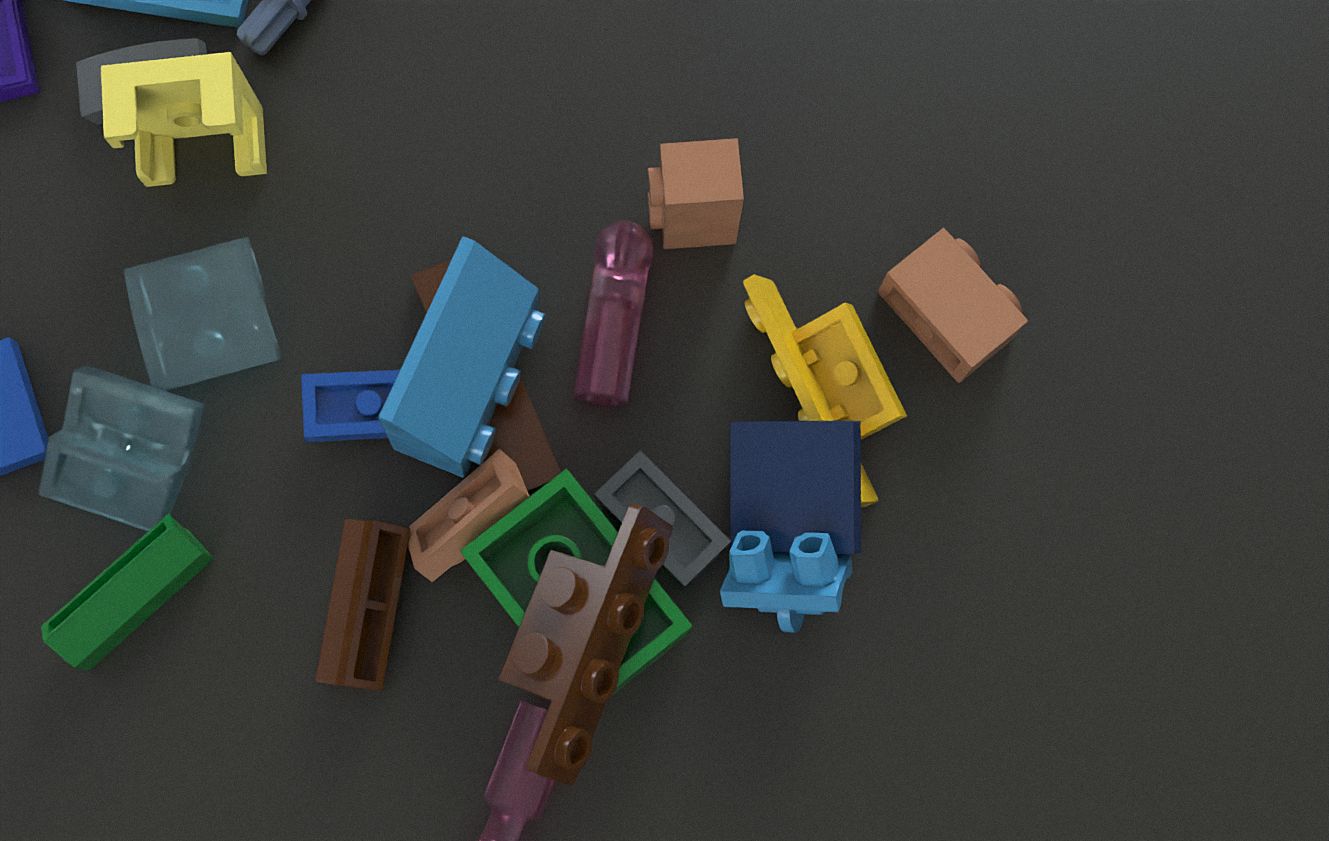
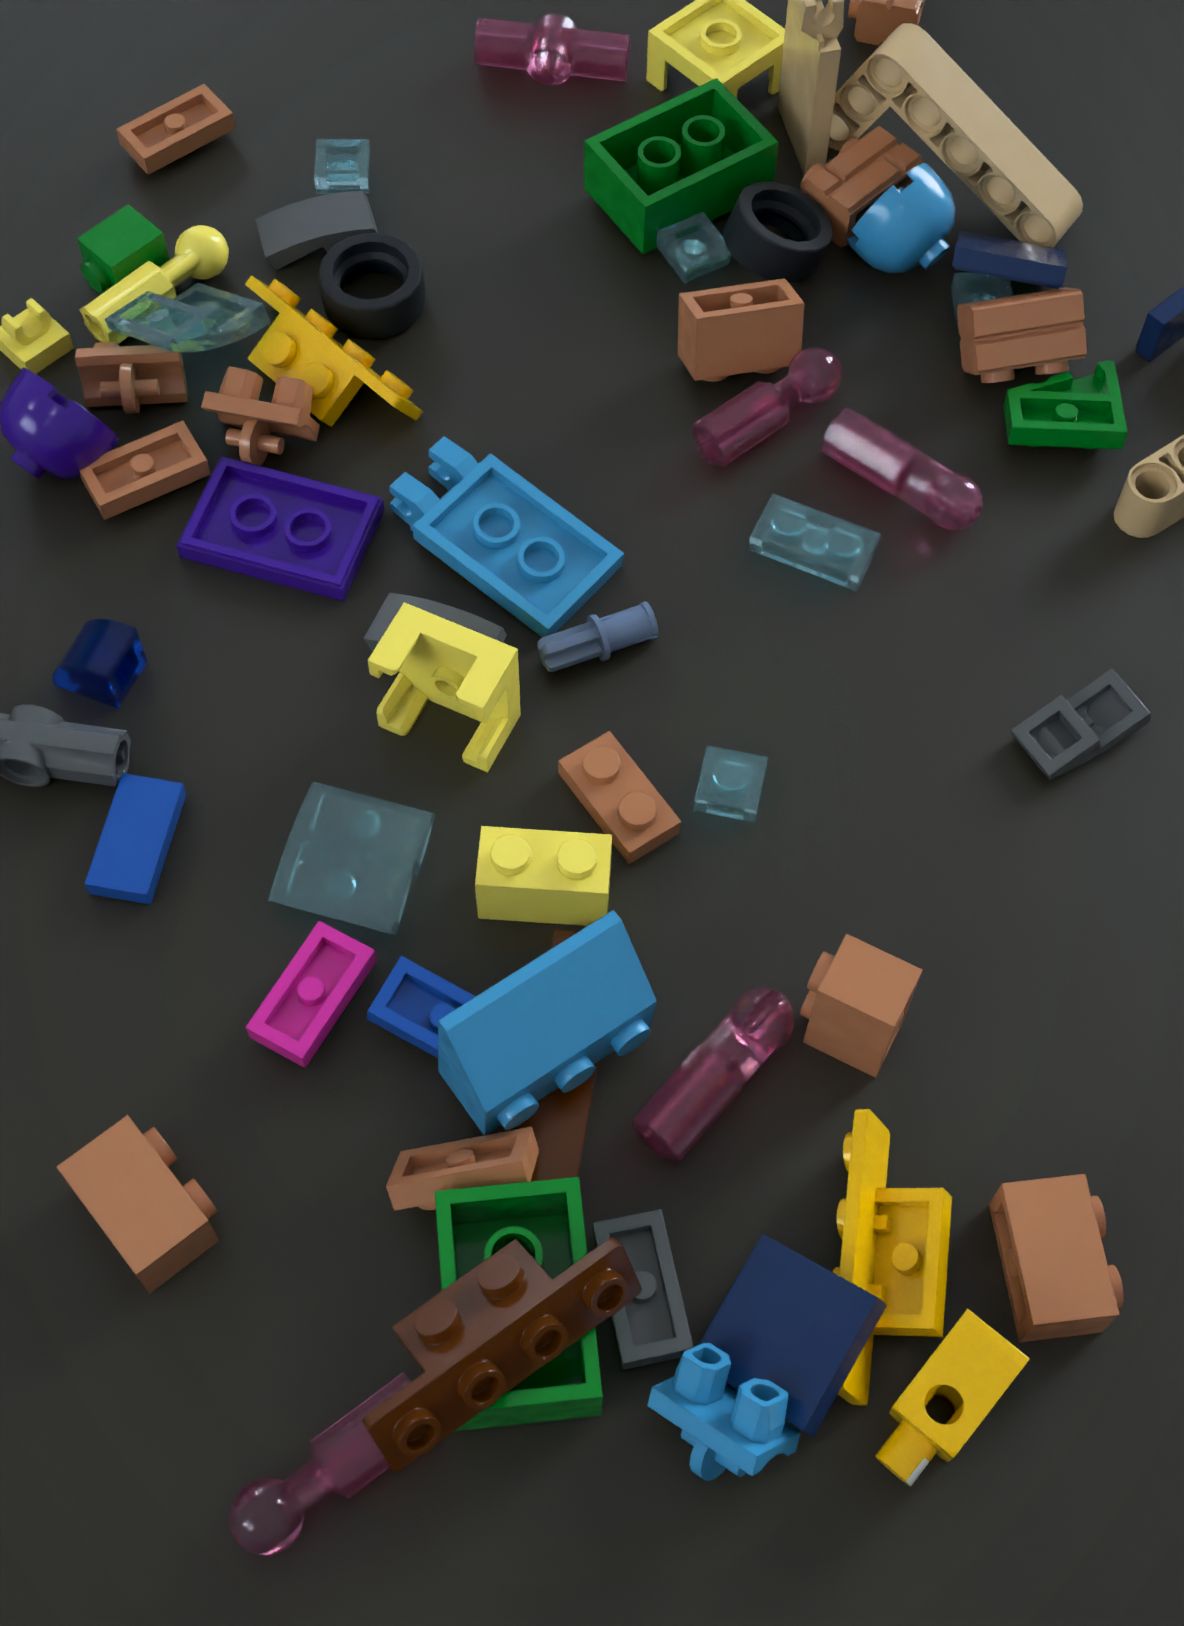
camera: 35 degrees right, 15 degrees down
(120, 448) = (209, 932): clear light blue slope -> none
(125, 594) = (128, 1057): green piece -> none
(219, 705) = (140, 1201): none -> nougat brick
(245, 448) = (311, 994): none -> dark pink plate
(363, 605) = (319, 1194): reddish brown piece -> none
(375, 236) = (543, 875): none -> light yellow brick
(391, 131) = (619, 797): none -> nougat plate
(477, 67) = (730, 783): none -> clear light blue plate
(954, 432) = (969, 1370): none -> yellow torso

